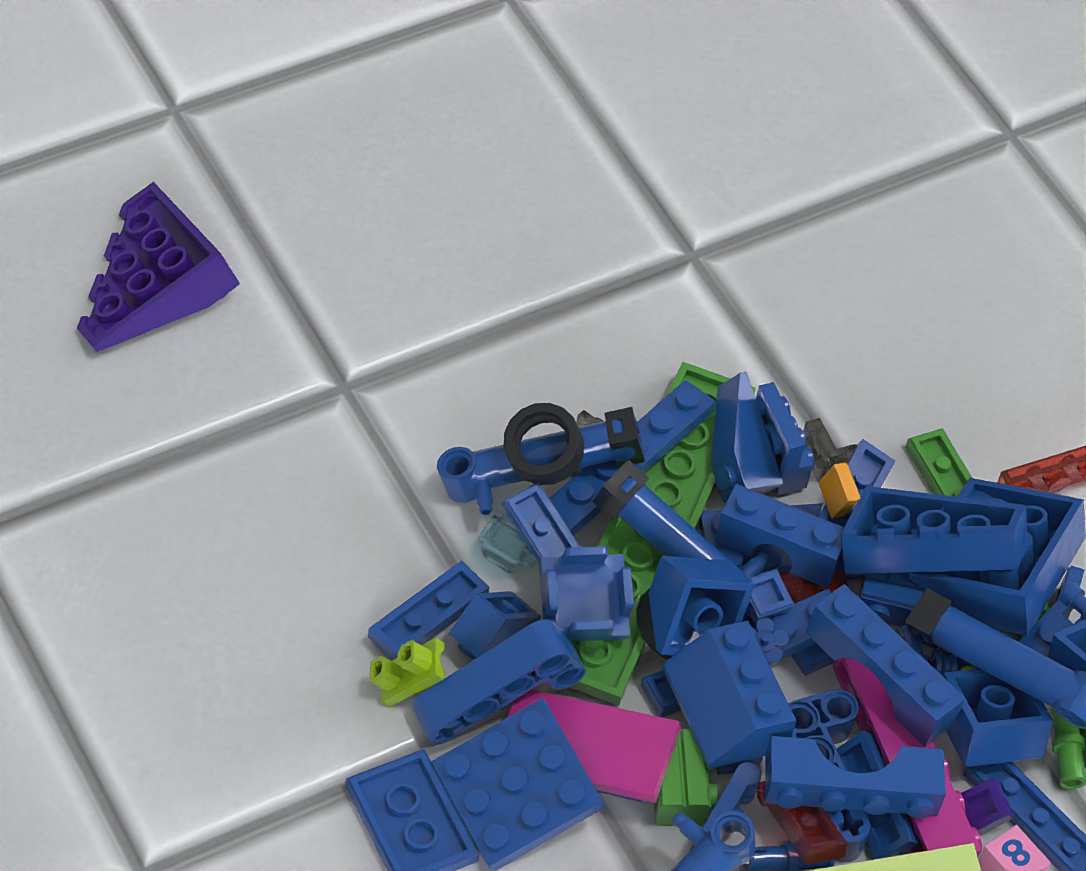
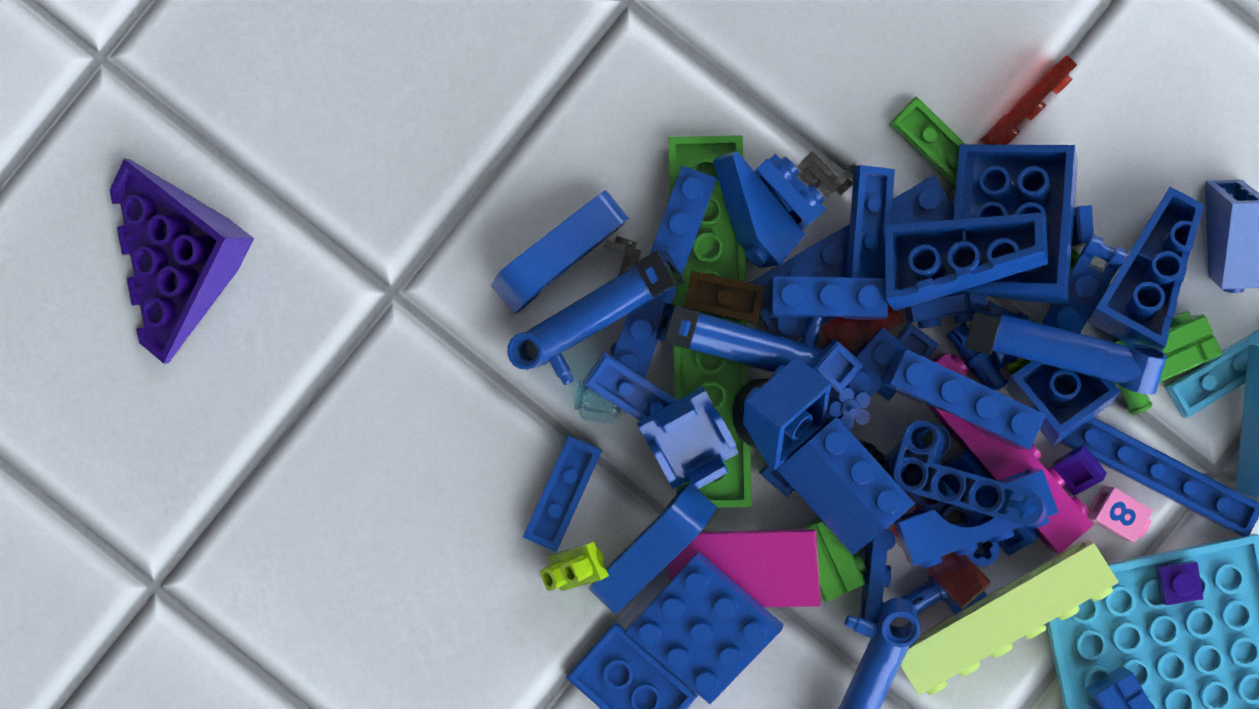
camera: 15 degrees left, 35 degrees up
(491, 620) = (621, 481): blue slope -> none
(494, 398) = (558, 251): none -> blue beam
(533, 416) = (582, 345): black tyre -> none
(683, 497) = (724, 297): none -> dark brown plate
(839, 490) = (864, 242): light orange tile -> none
(853, 730) = (970, 484): none -> blue beam

